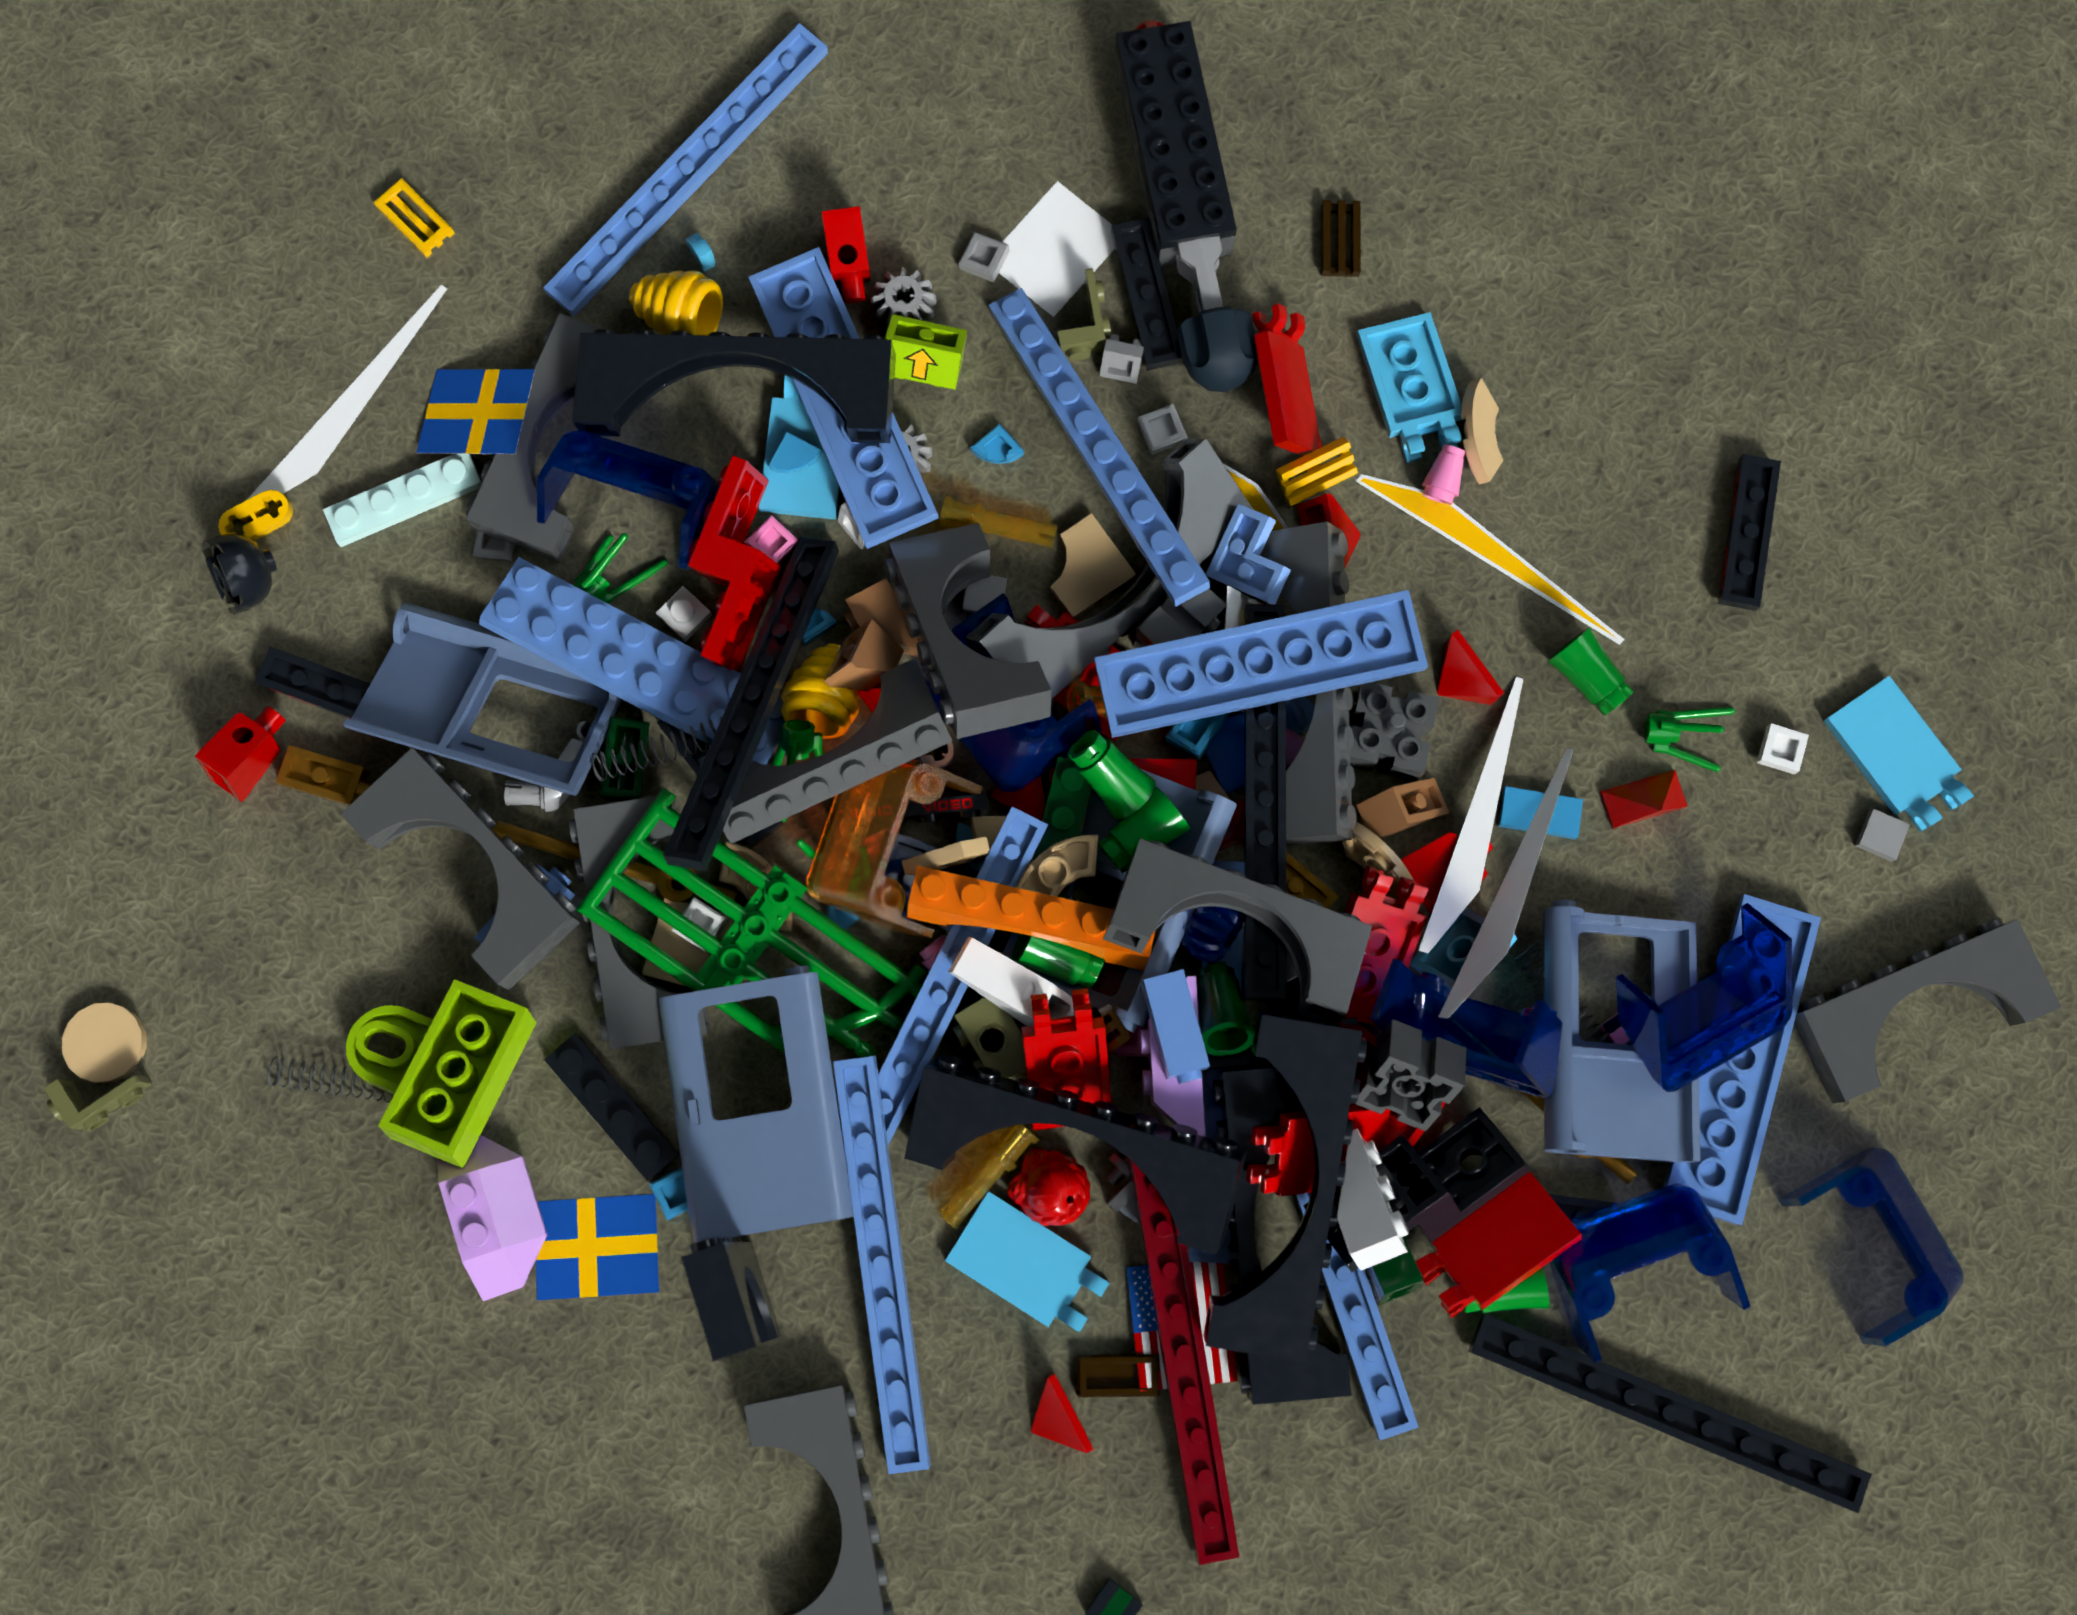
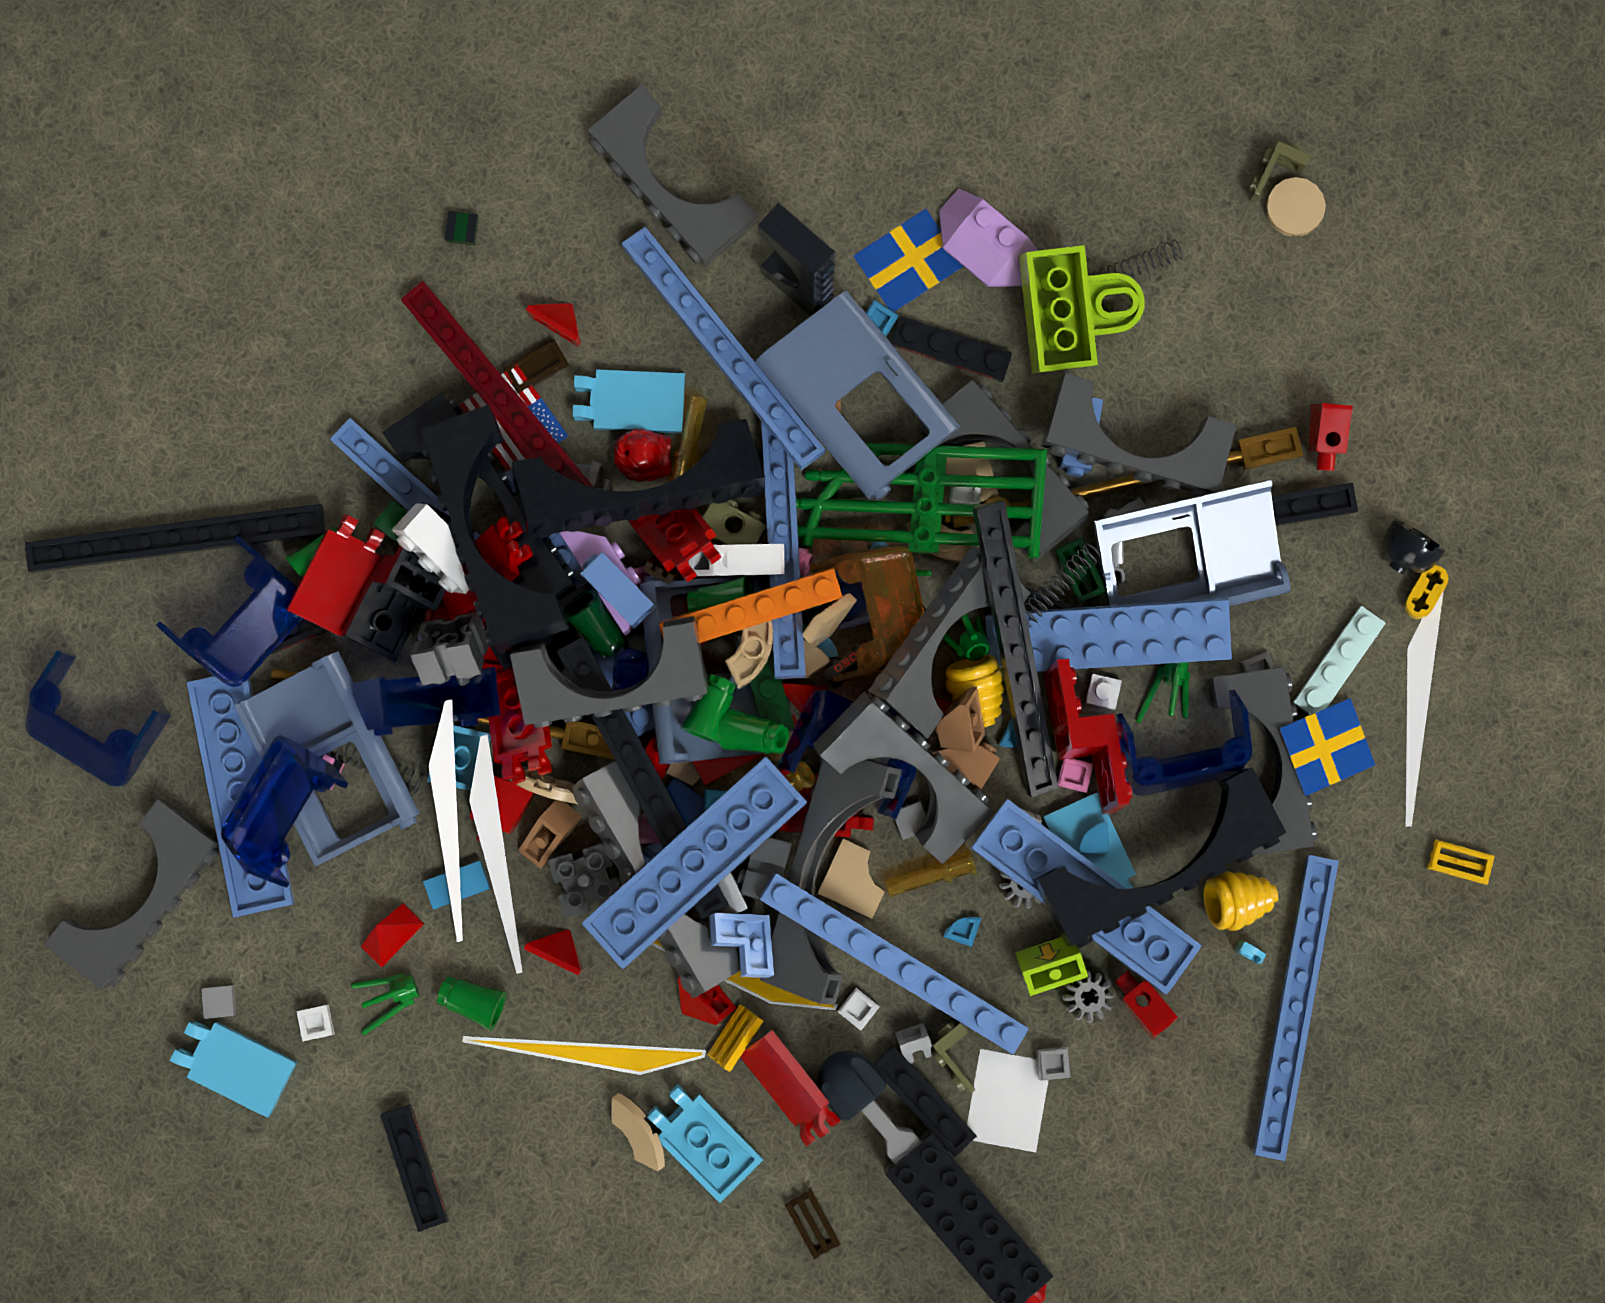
camera: 155 degrees right, 5 degrees up
(1445, 475) = (645, 1084): bright pink cone -> none

